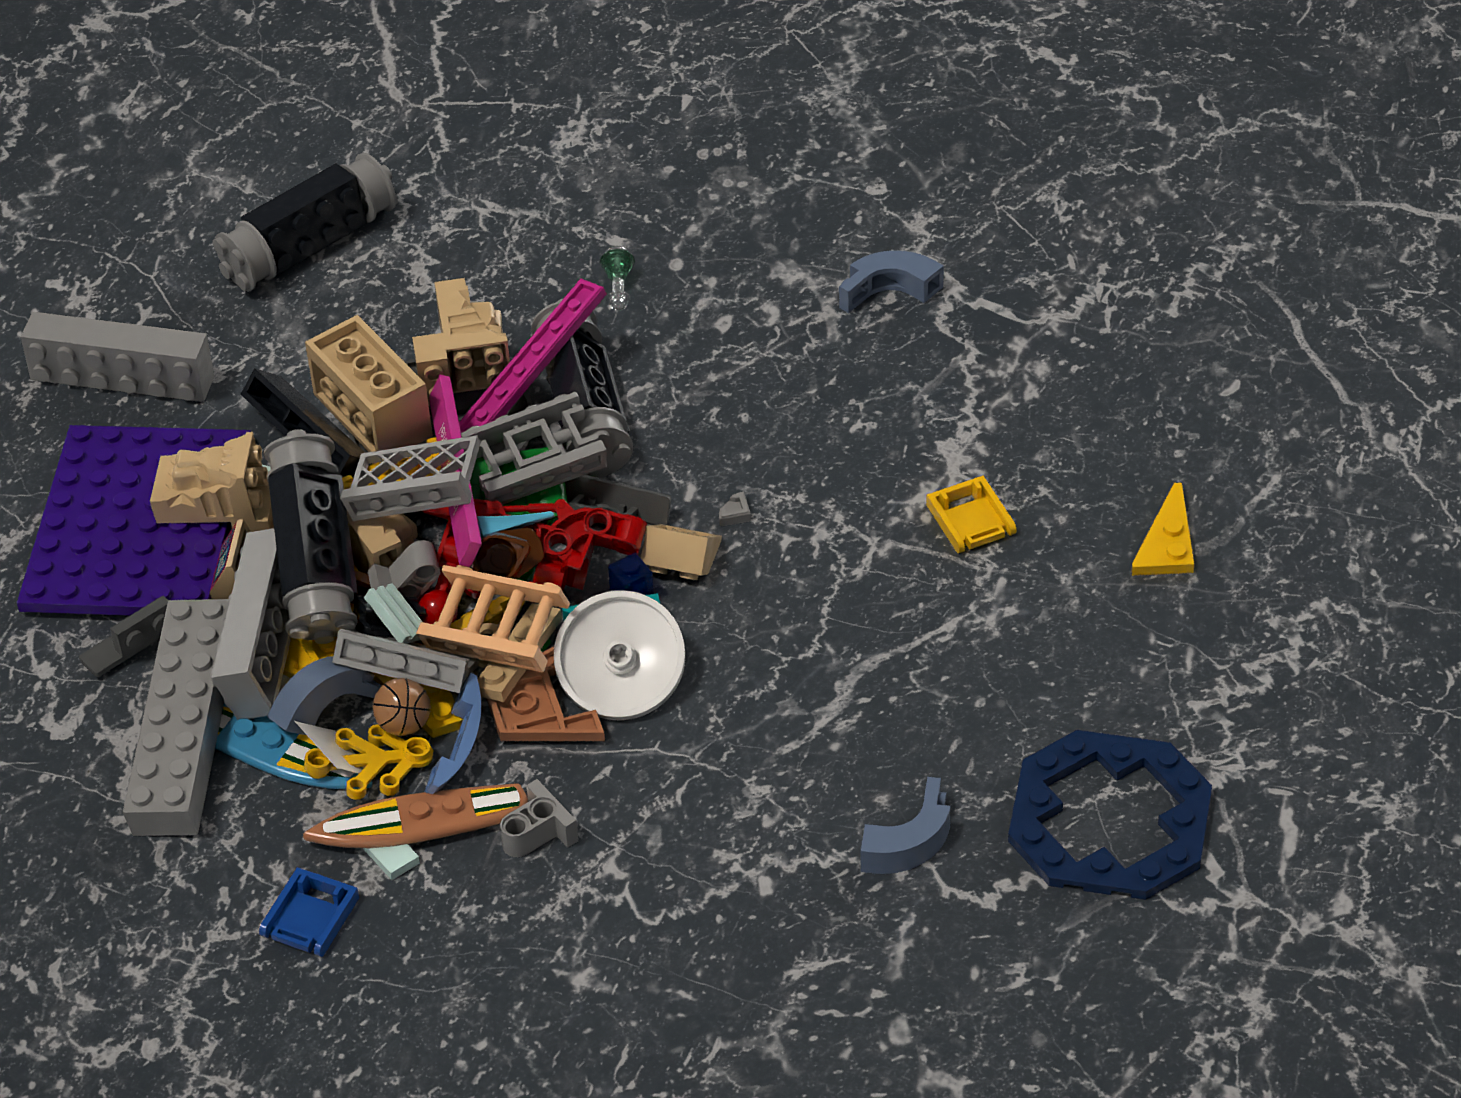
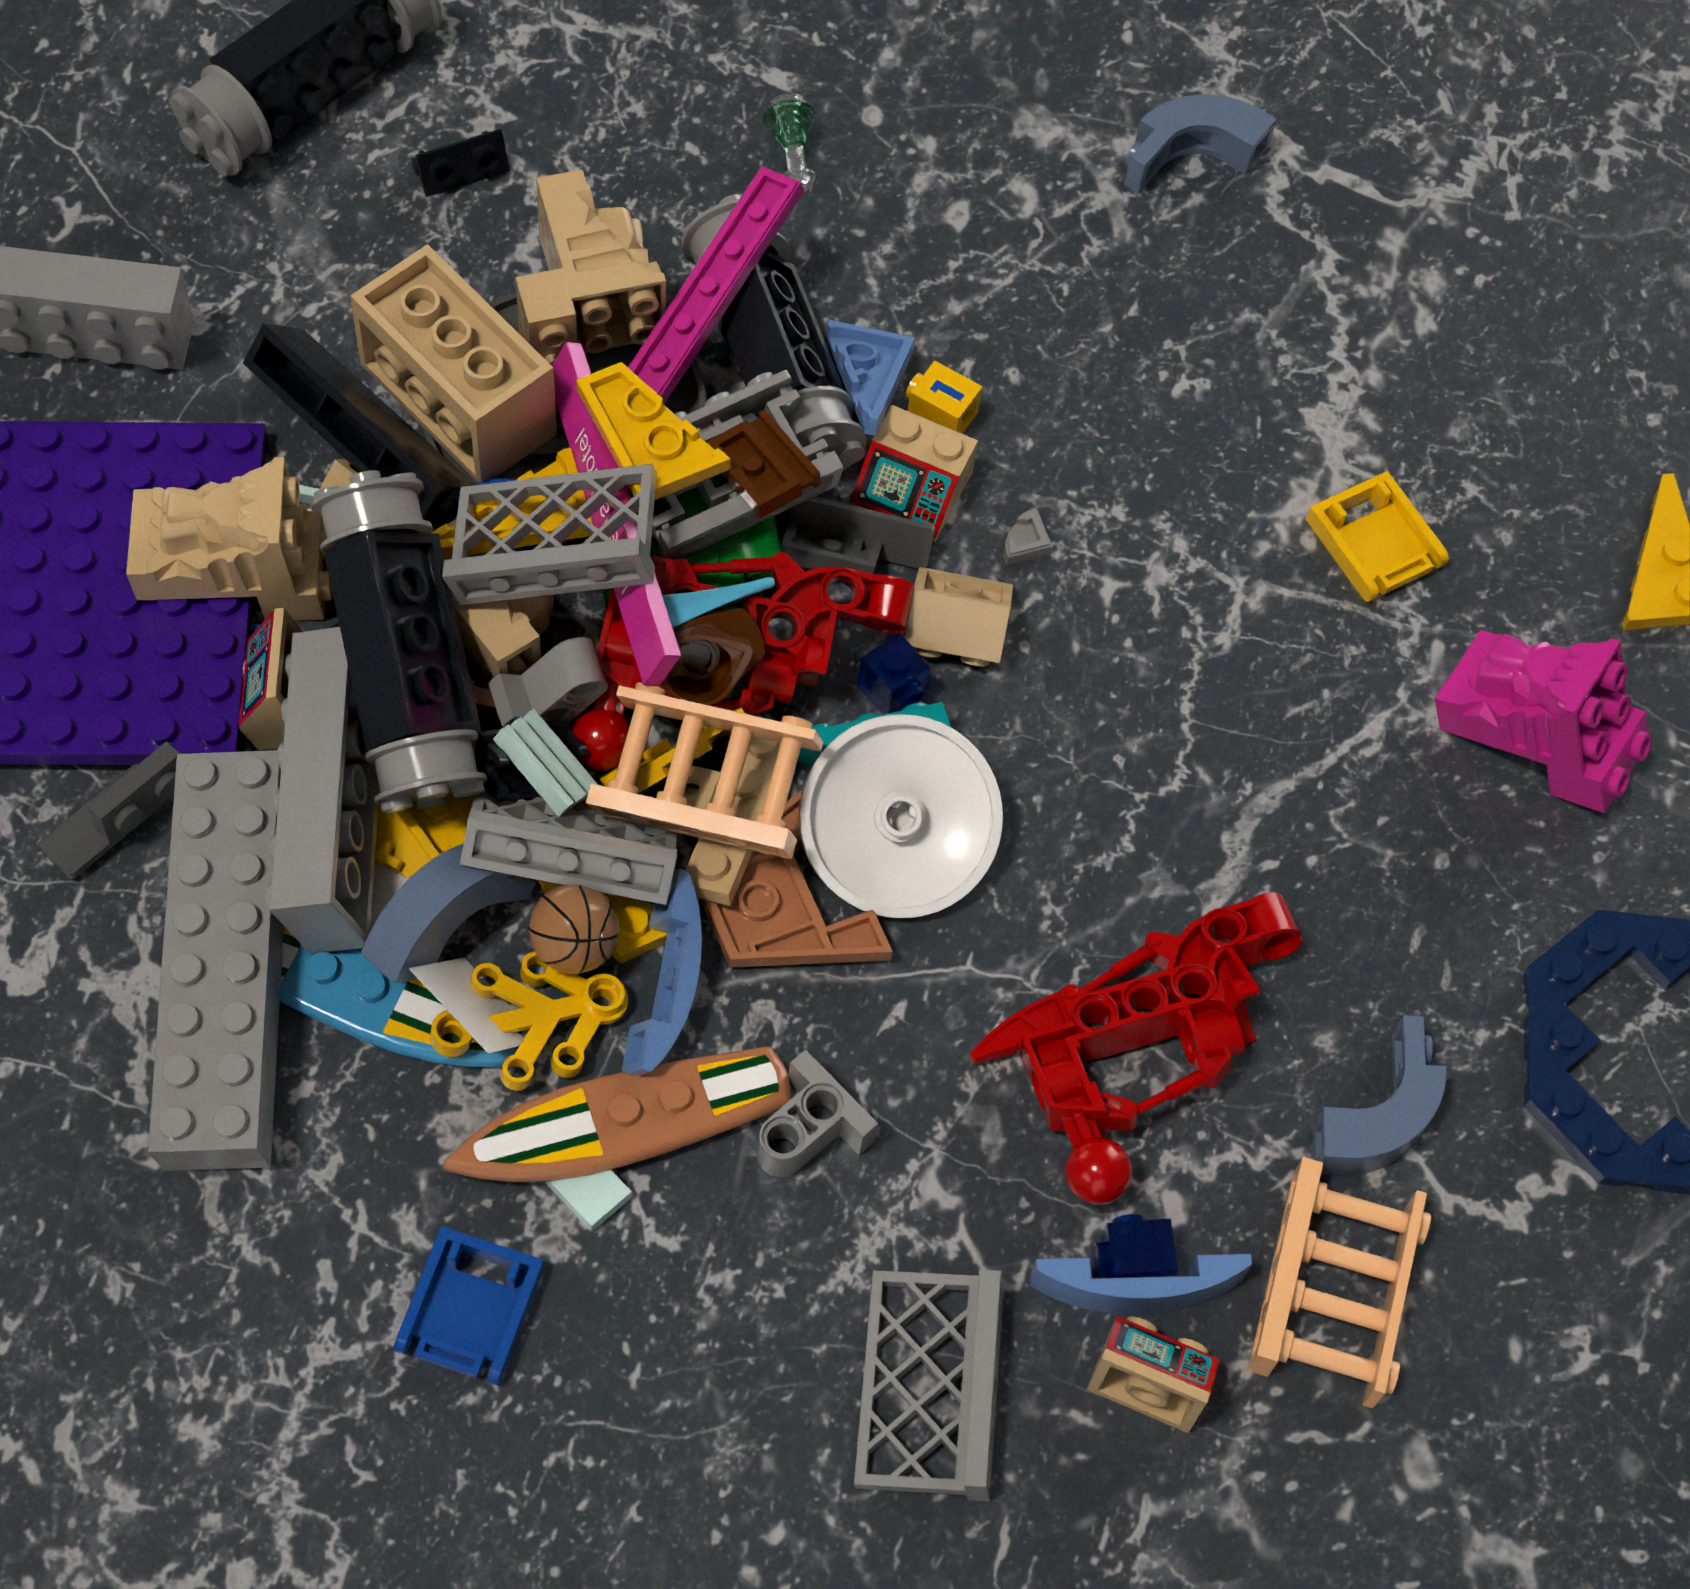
camera: 15 degrees left, 15 degrees up
(398, 285) = (461, 162): none -> black hinge
(474, 415) = (646, 432): none -> yellow wing
(552, 443) = (765, 464): none -> reddish brown plate
(617, 977) = (977, 1393): none -> light grey fence
(646, 406) = (870, 367): none -> medium blue wing
(667, 465) = (915, 469): none -> slope
(691, 428) = (944, 397): none -> yellow brick
(728, 965) = (1154, 1373): none -> tan slope
(732, 903) = (1136, 1248): none -> clear blue brick
(733, 925) = (1072, 1283): none -> medium blue slope
(784, 760) = (1210, 1030): none -> red piece
(838, 901) = (1288, 1293): none -> light nougat fence
(1063, 607) = (1552, 709): none -> dark pink brick

